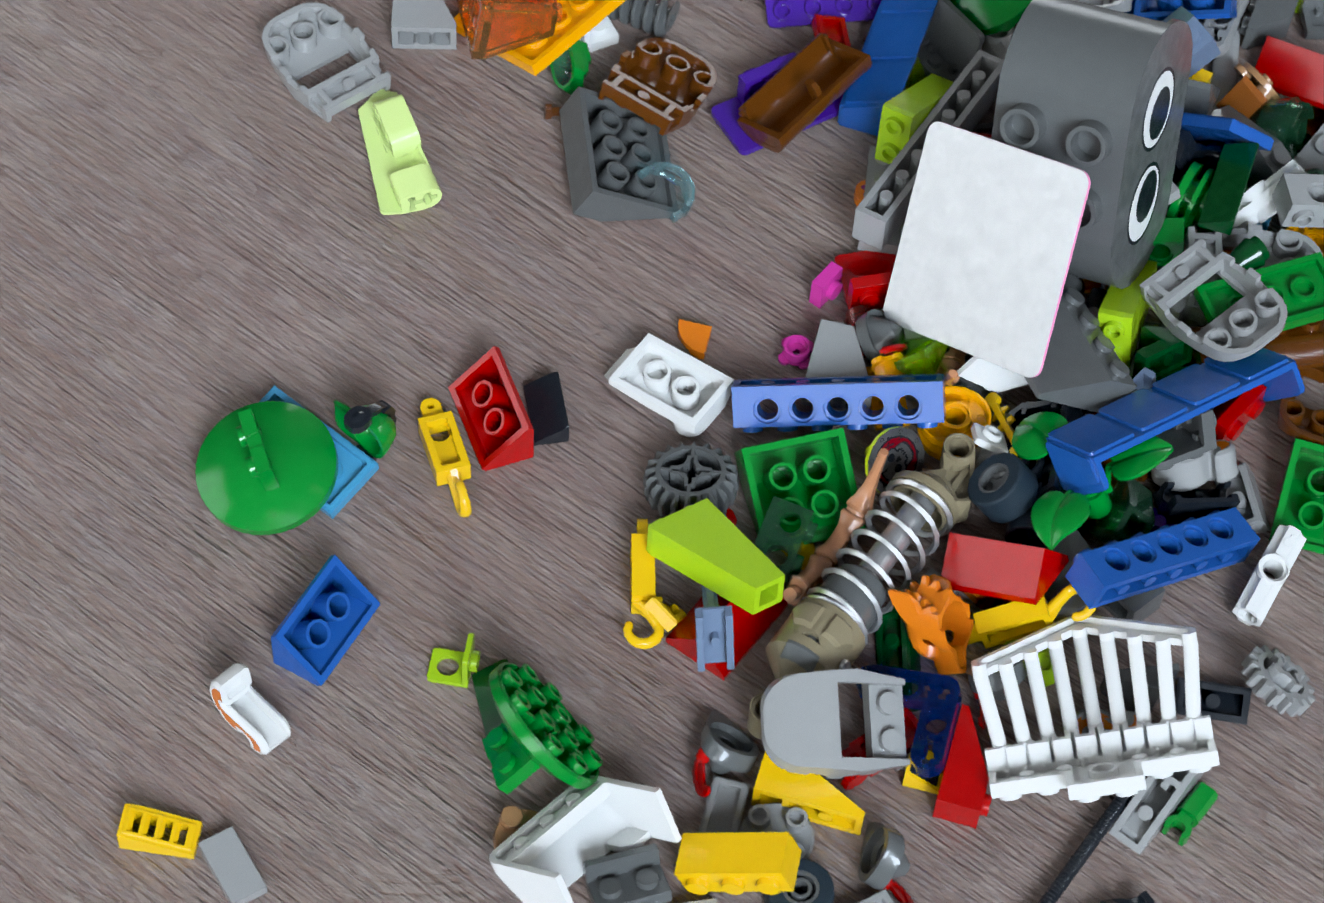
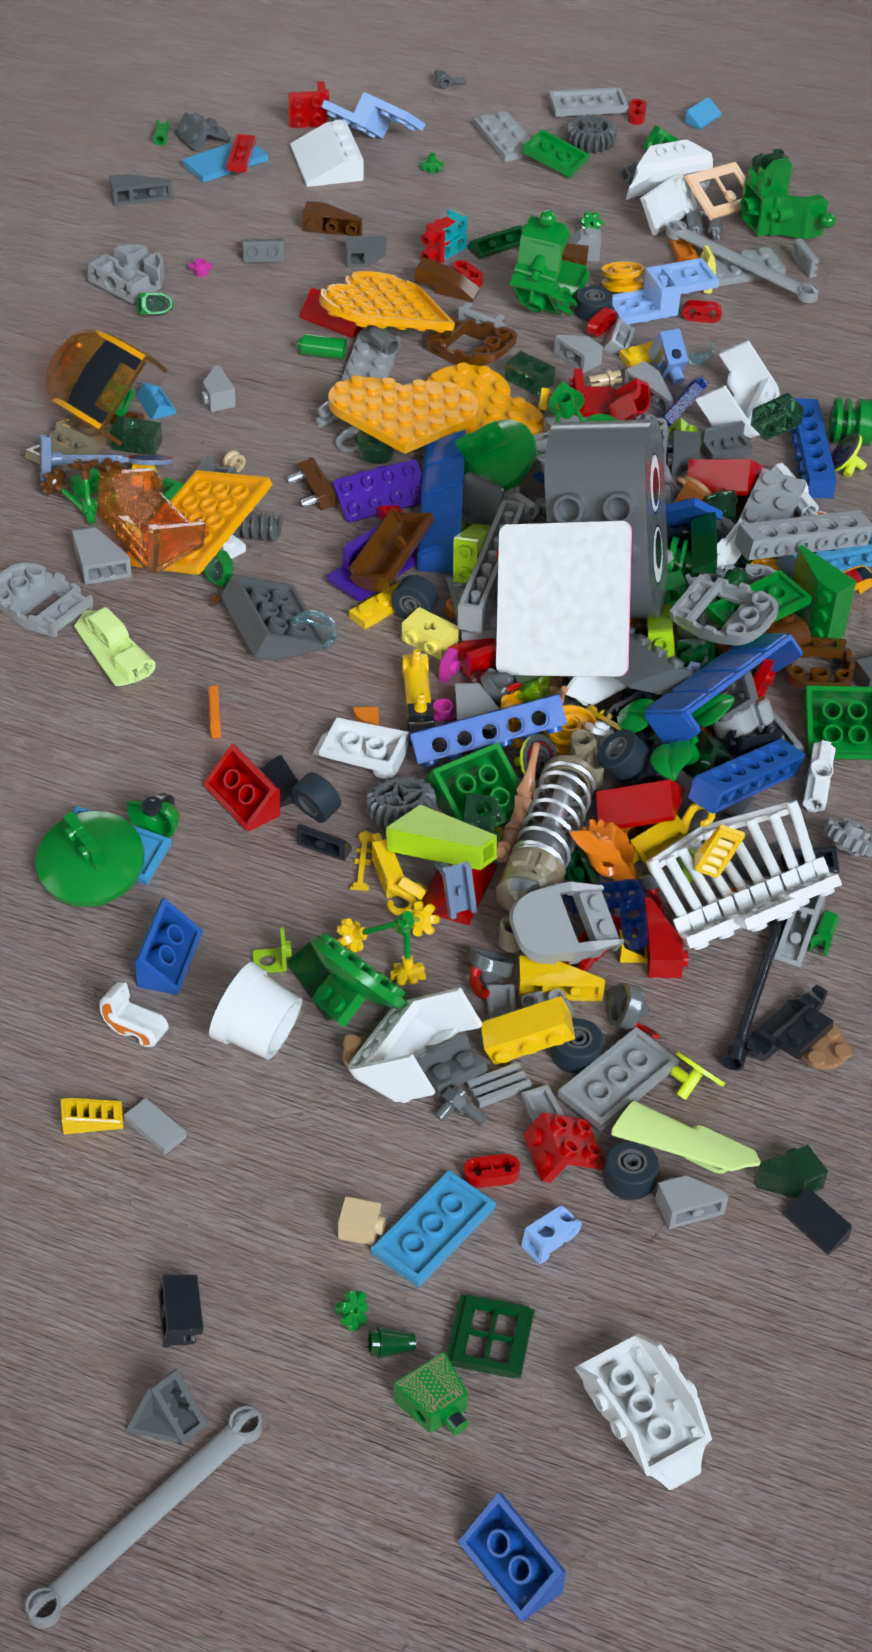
camera: 15 degrees left, 10 degrees down
(397, 749) = (255, 1013): none -> white piece
(446, 457) = (221, 827): yellow piece -> none
(495, 285) = (214, 712): none -> orange tile
(573, 514) = (323, 842): none -> black slope
(582, 447) = (316, 797): none -> black wheel
(616, 727) = (419, 919): none -> yellow plant
(630, 520) = (364, 839): none -> yellow piece
(660, 83) = (287, 564): reddish brown slope -> none
(770, 319) = (417, 691): none -> yellow piece
(773, 168) = (374, 609): none -> yellow plate
(813, 173) = (412, 593): none -> black wheel
(816, 229) = (429, 633): none -> light yellow brick
(1070, 672) = (716, 852): none -> yellow slope

